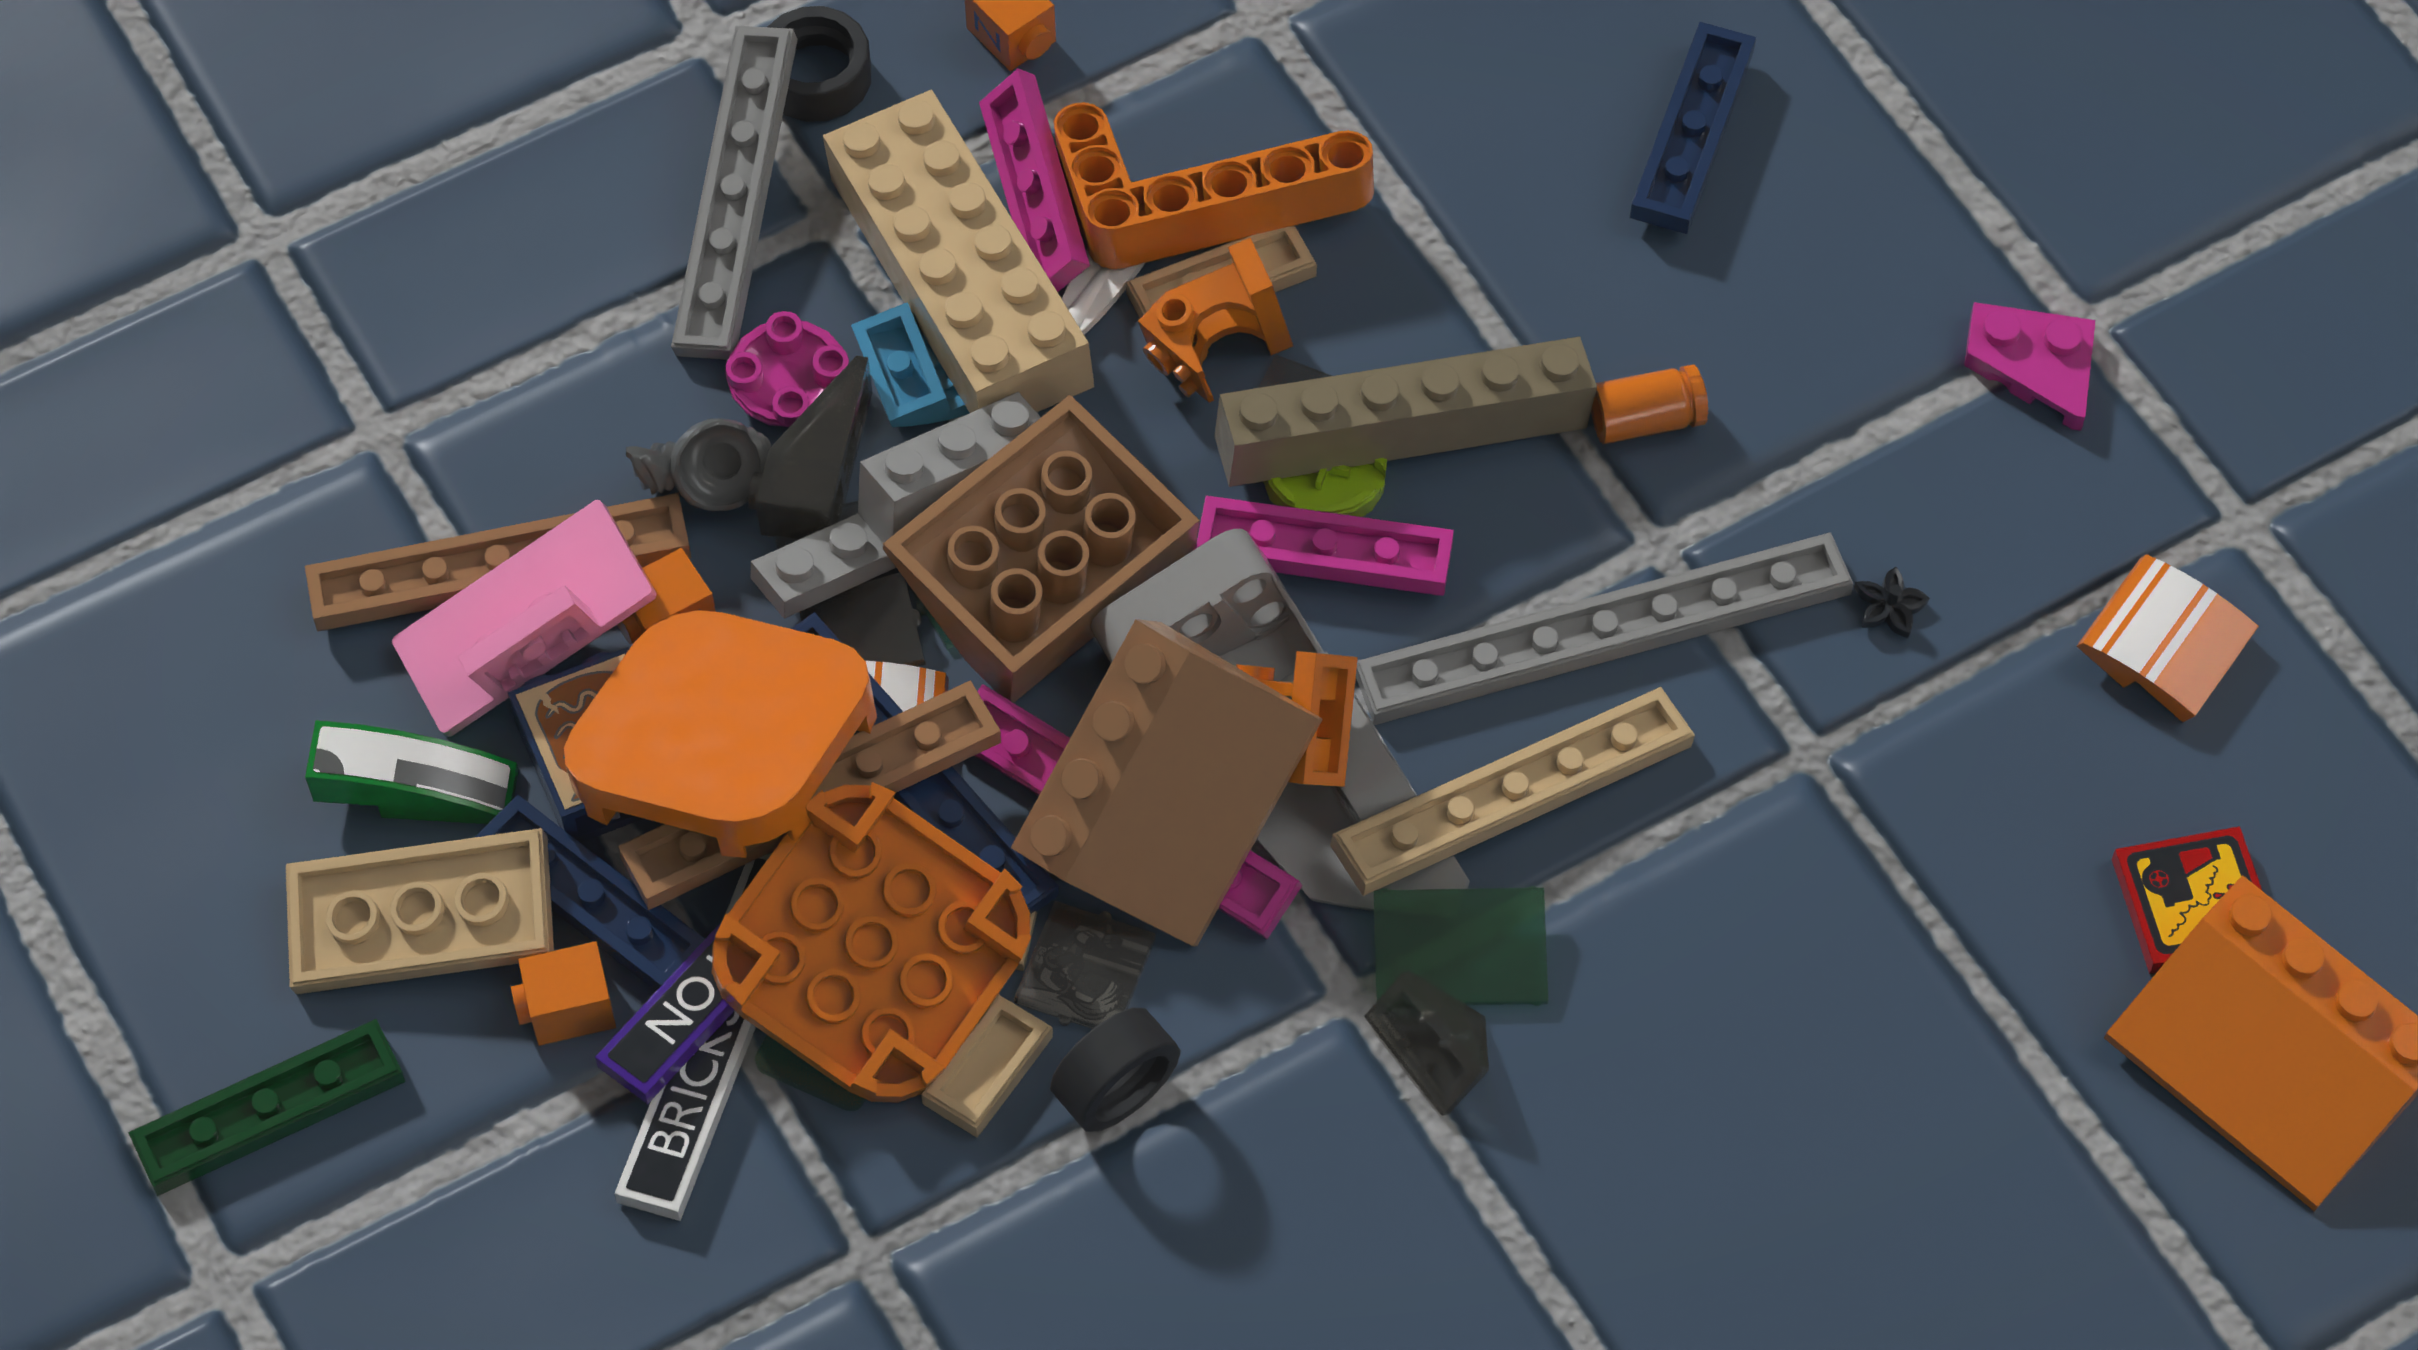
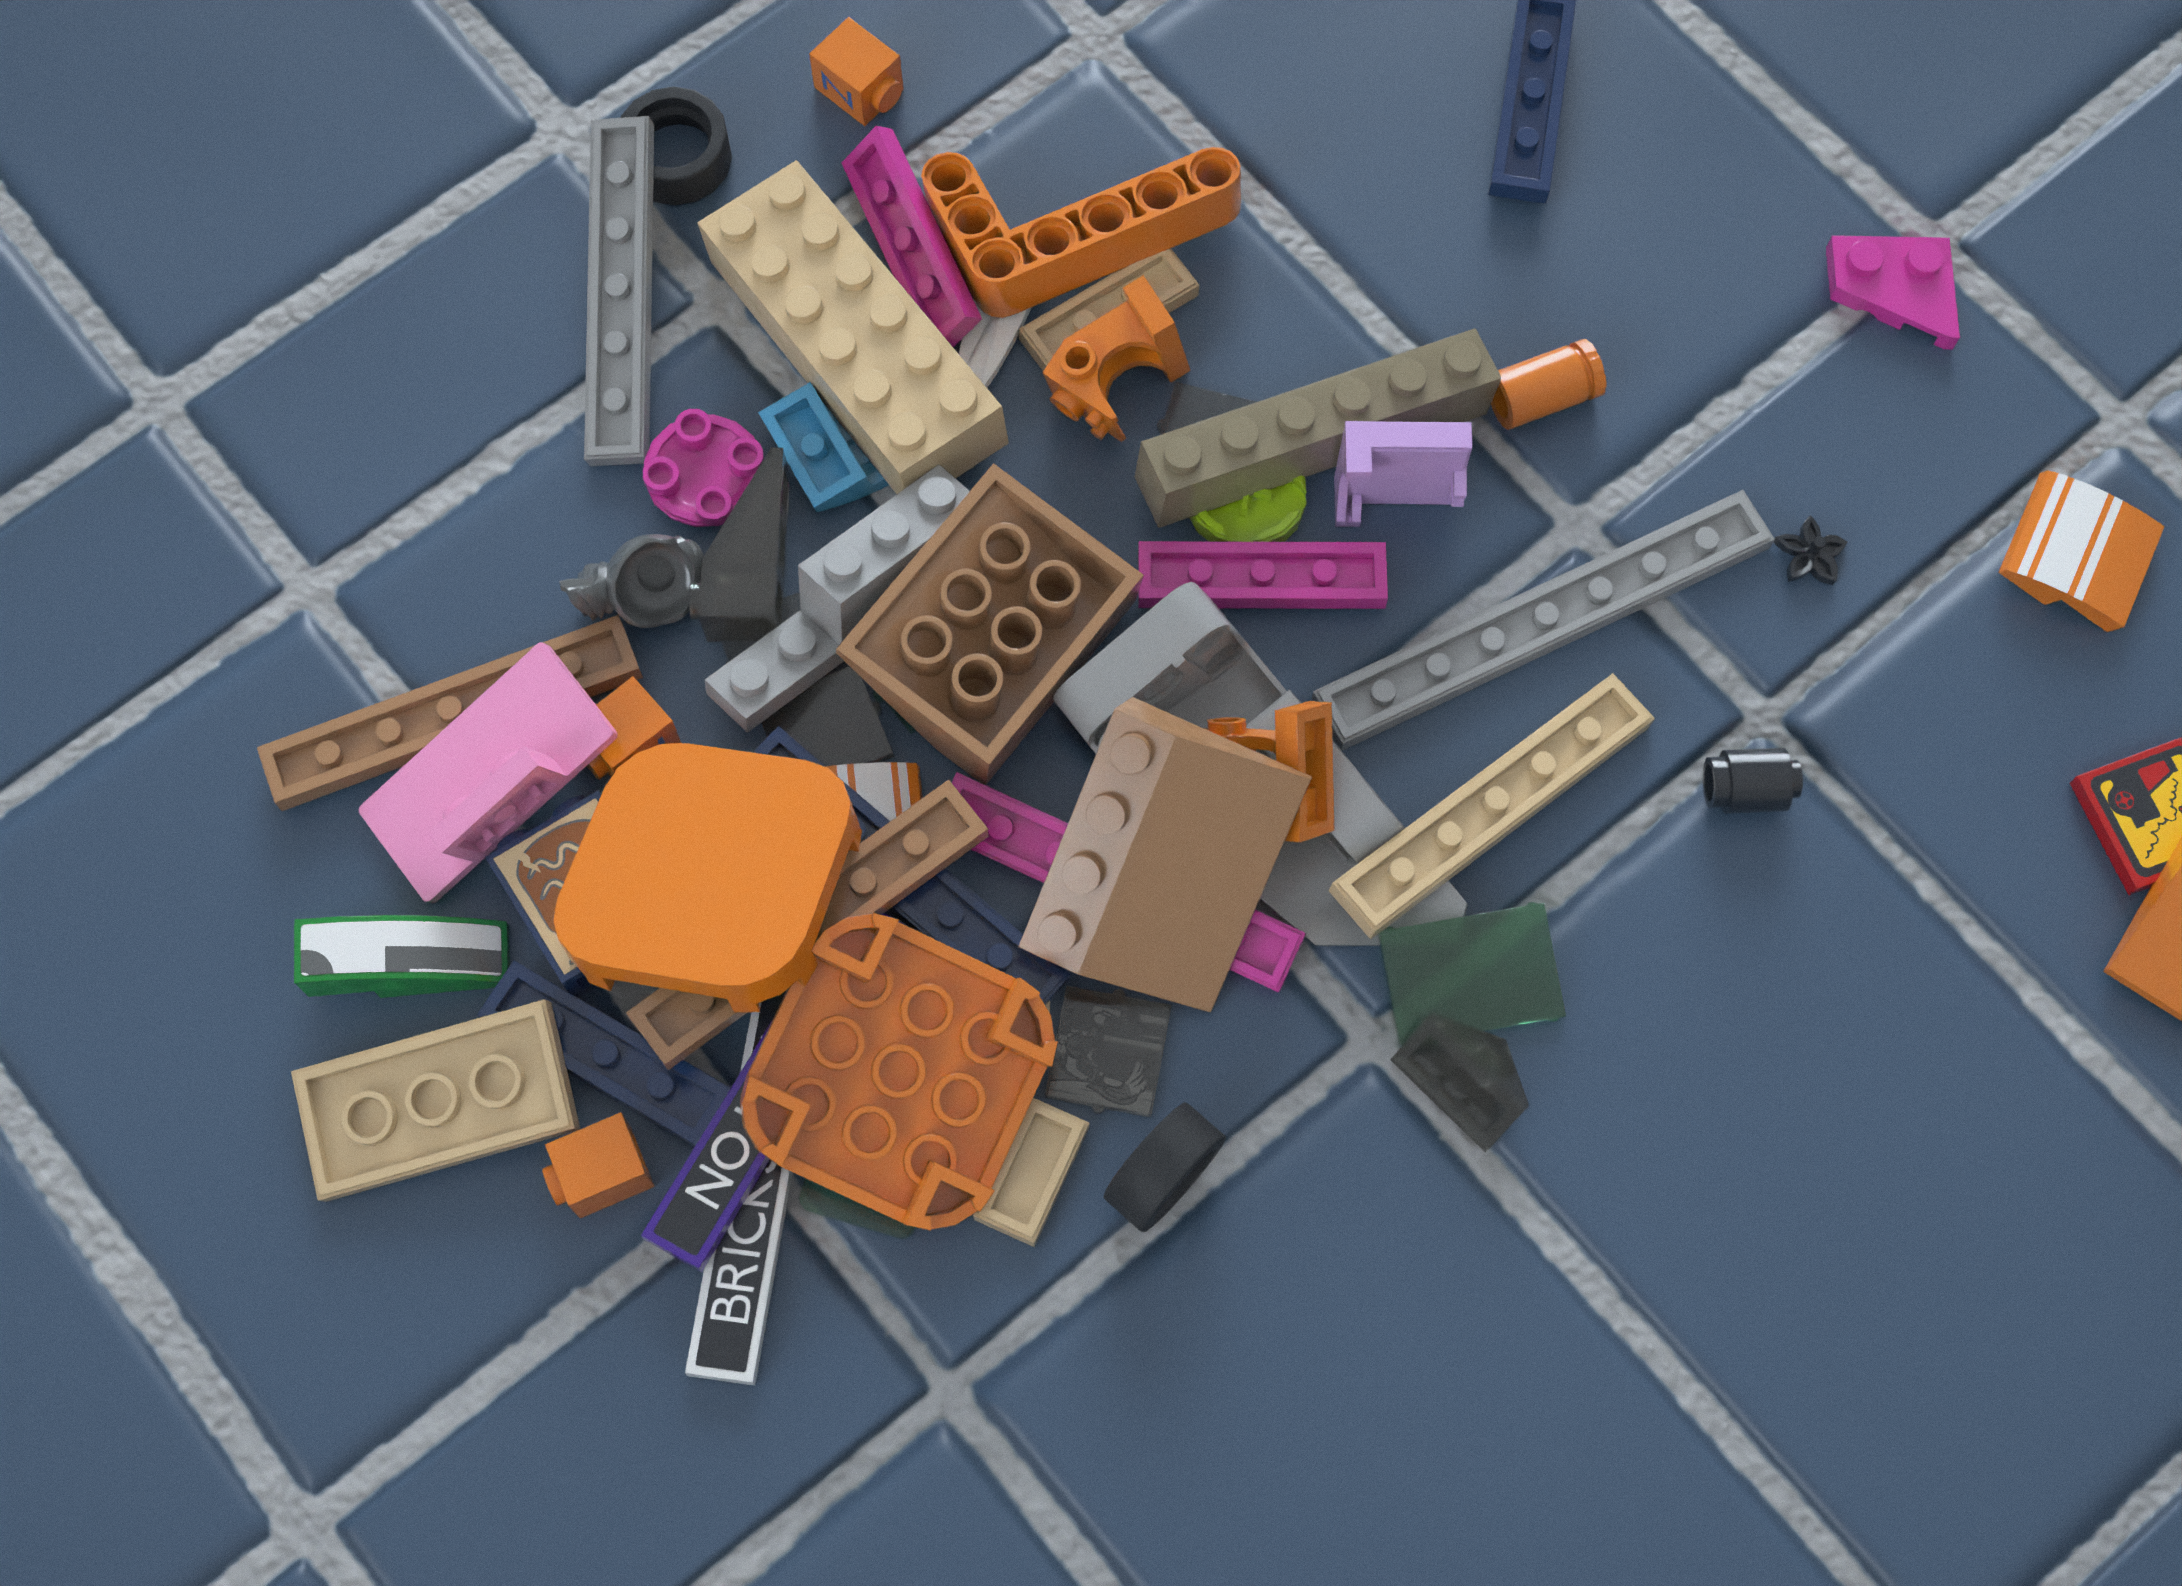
camera: 10 degrees left, 10 degrees up
(266, 1107) = (314, 1332): dark green tile -> none
(1478, 456) = (1400, 466): none -> lavender piece
(1779, 805) = (1752, 780): none -> black brick

